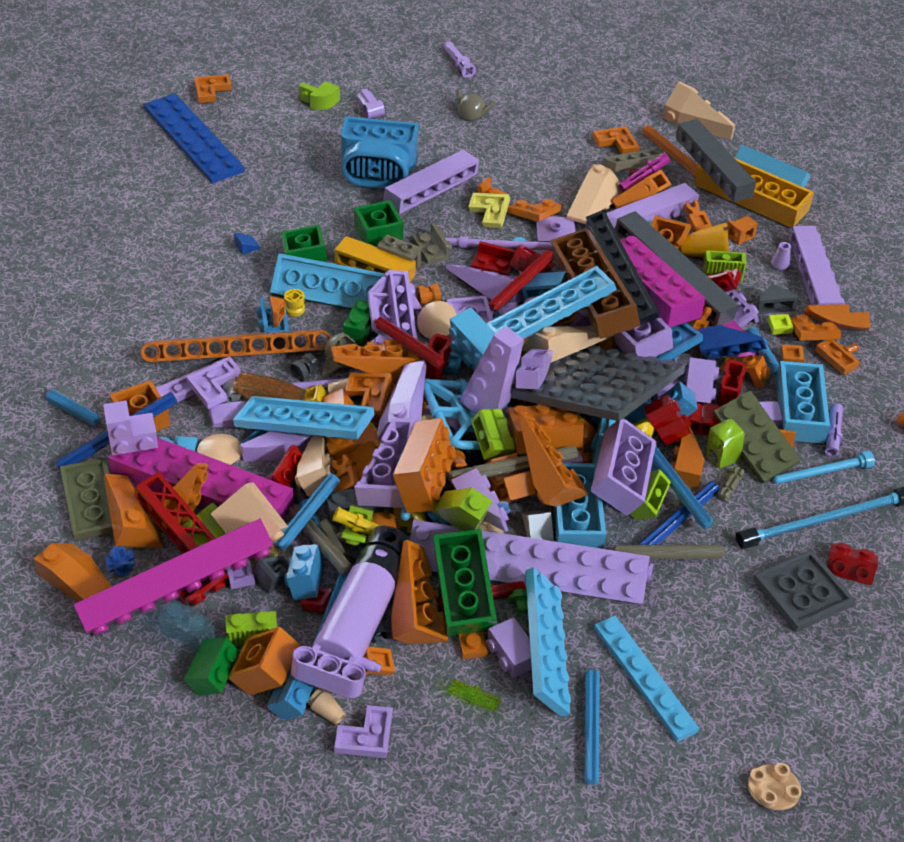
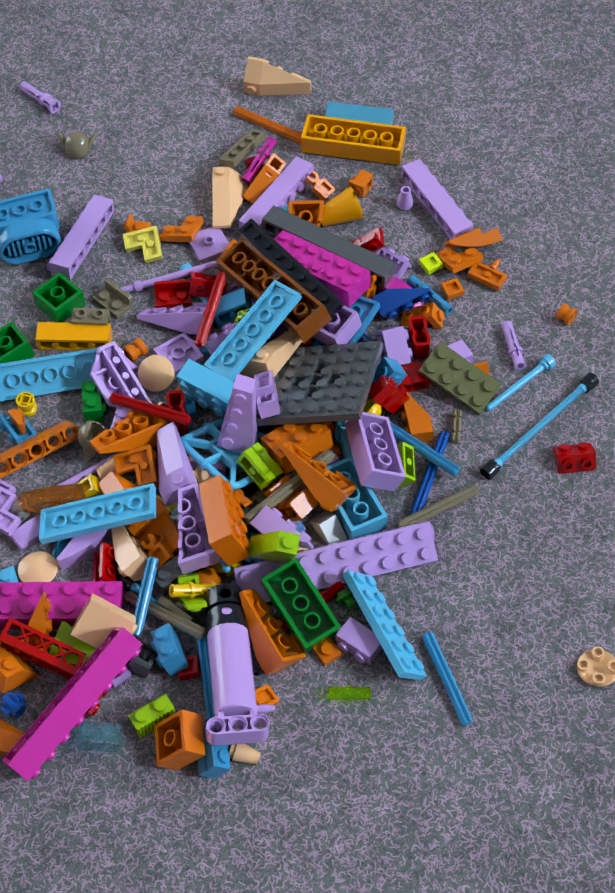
camera: 20 degrees left, 10 degrees up
(212, 666) = (138, 761): green brick -> none
(304, 367) = (68, 461): dark grey wheel -> none
(368, 740) = (291, 762): lavender plate -> none
(616, 136) = (217, 127): orange plate -> none
(646, 679) = (467, 621): medium azure plate -> none
(715, 160) = (314, 127): dark grey brick -> none
(719, 261) = (362, 224): lime brick -> none
(729, 438) = (440, 387): lime piece -> none
(777, 300) = (419, 241): dark grey slope -> none
(803, 400) = (480, 329): medium azure brick -> none
(804, 590) = (550, 496): dark grey plate -> none

